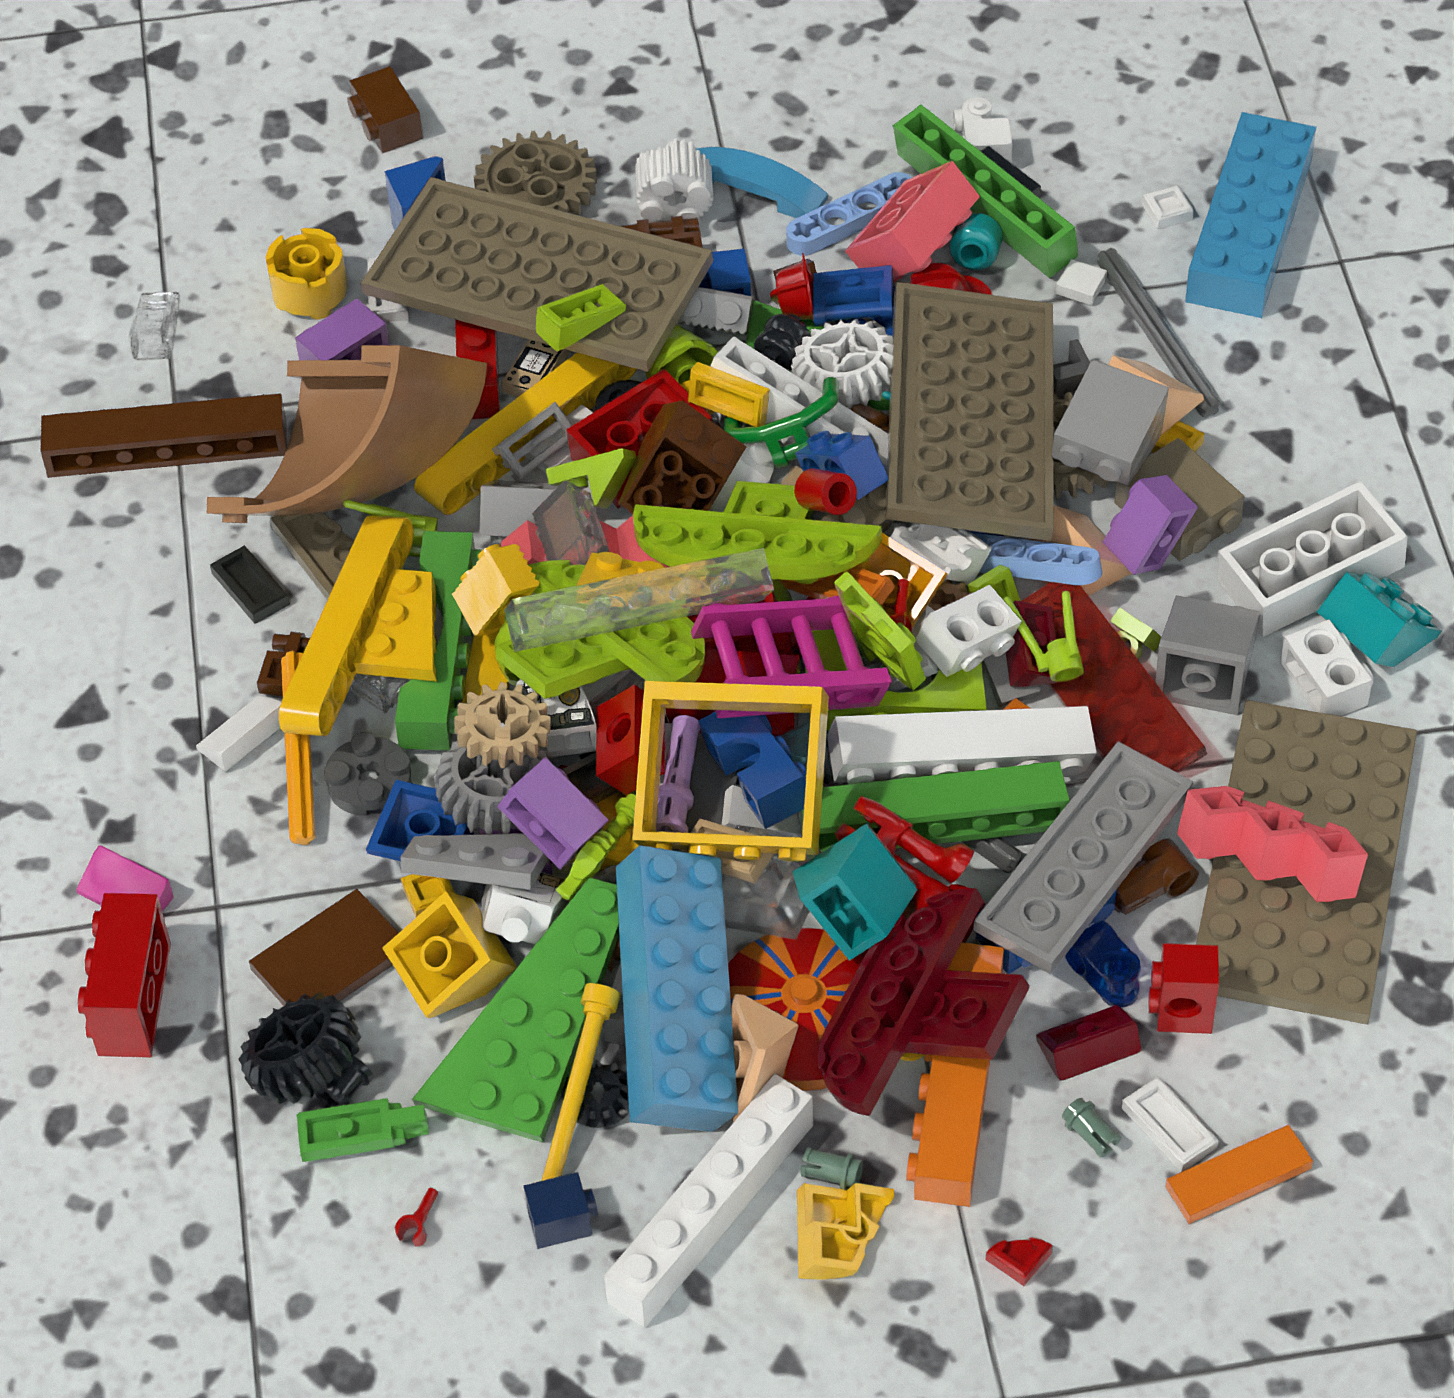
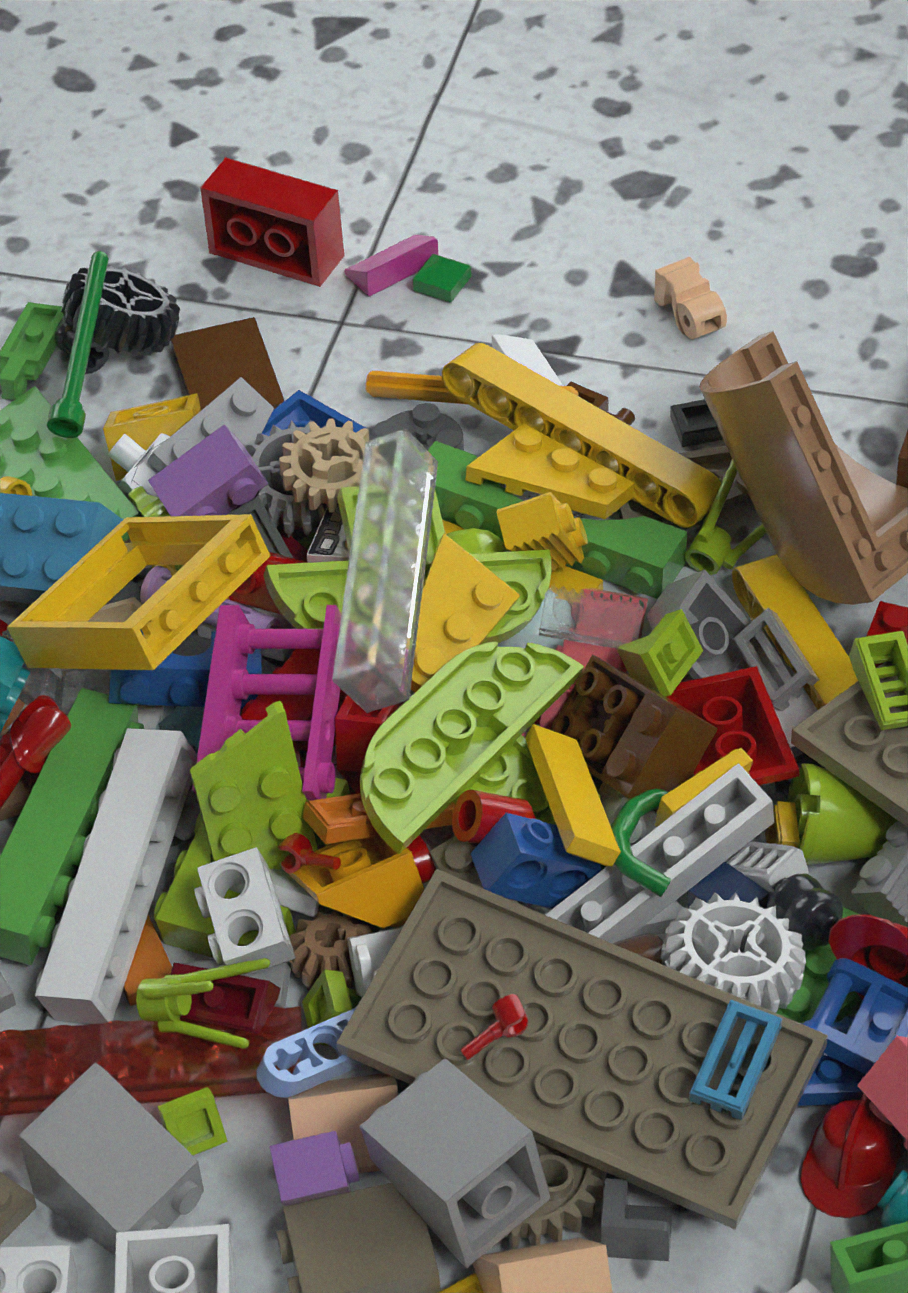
camera: 115 degrees right, 5 degrees down
(121, 629) = (694, 304): none -> light nougat leg
(136, 840) = (442, 278): none -> green tile
(478, 1004) = (67, 415): none -> green piece
(776, 457) = (572, 796): none -> yellow tile
(945, 316) = (720, 1098): none -> dark azure tile
(989, 430) = (510, 1022): none -> red hand

